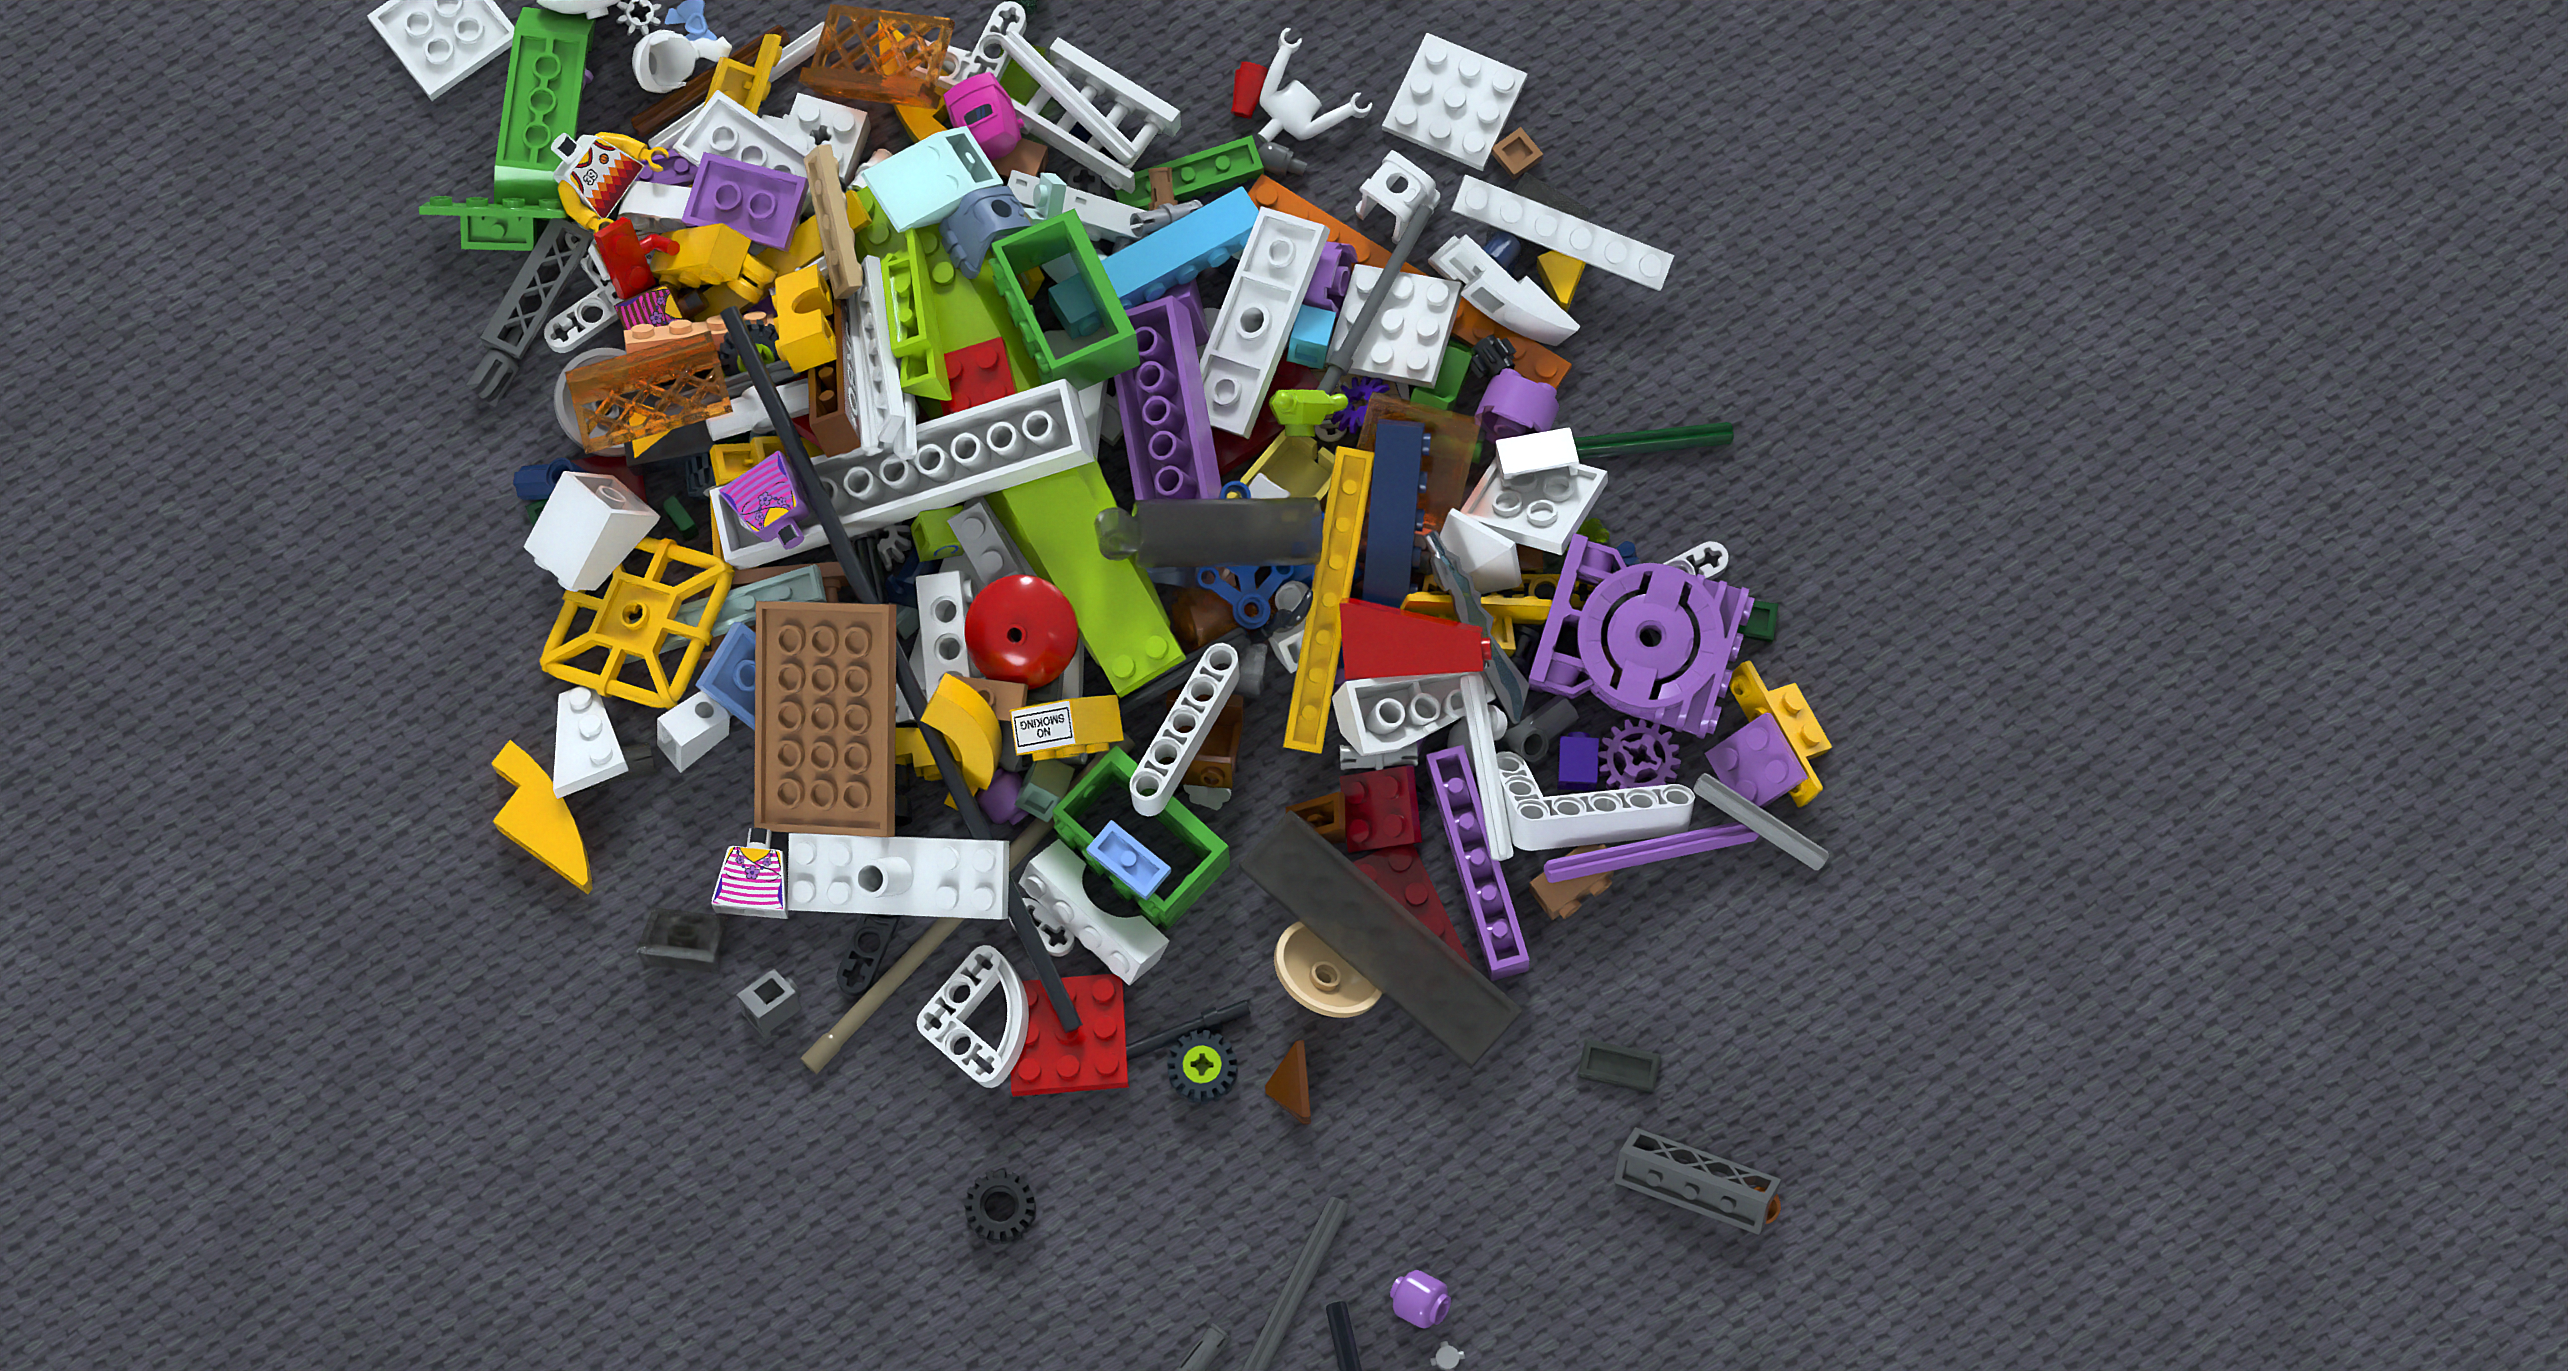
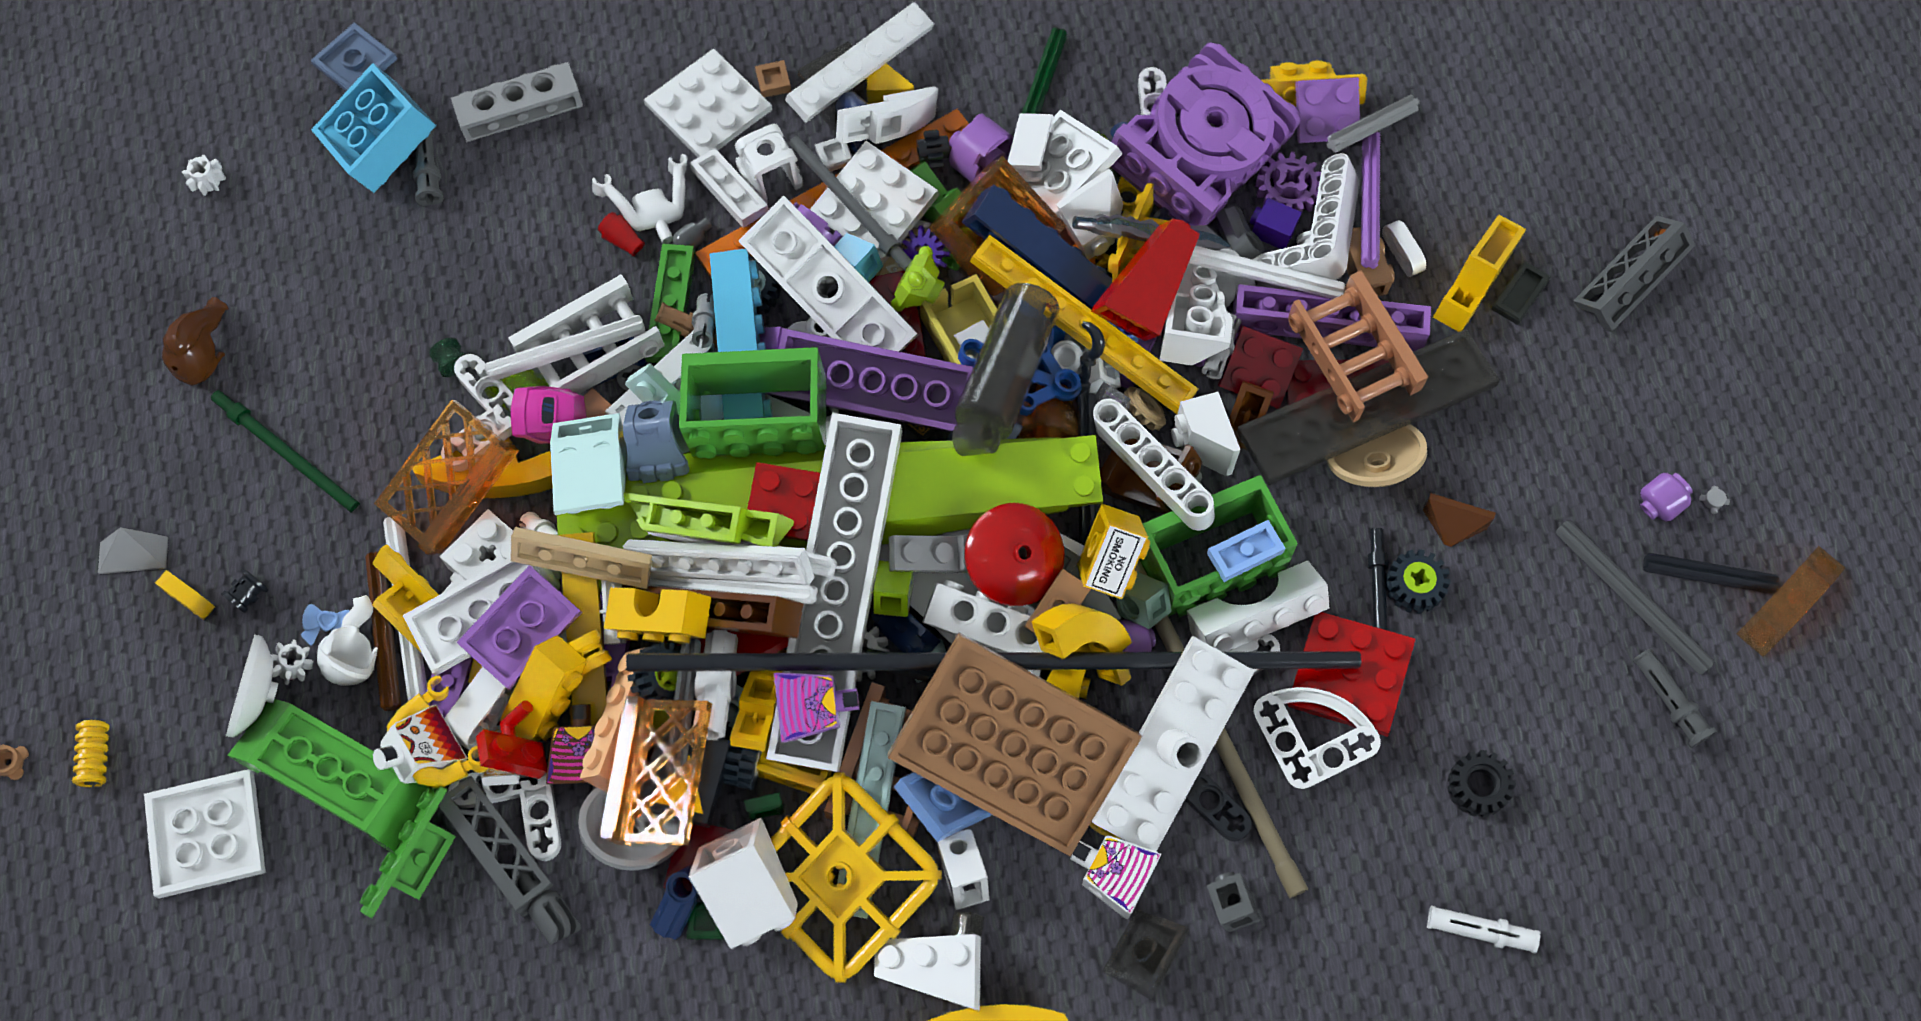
camera: 70 degrees left, 5 degrees down
(847, 1275) = (1525, 938): none -> white pin
(1269, 723) = (1145, 408): none -> tan gear
(1273, 780) = (1207, 428): none -> white slope
(1355, 166) = (729, 187): none -> white plate
(1446, 928) = (1375, 321): none -> nougat fence
(1613, 915) = (1404, 248): none -> white beam
(1617, 1007) = (1479, 273): none -> yellow slope

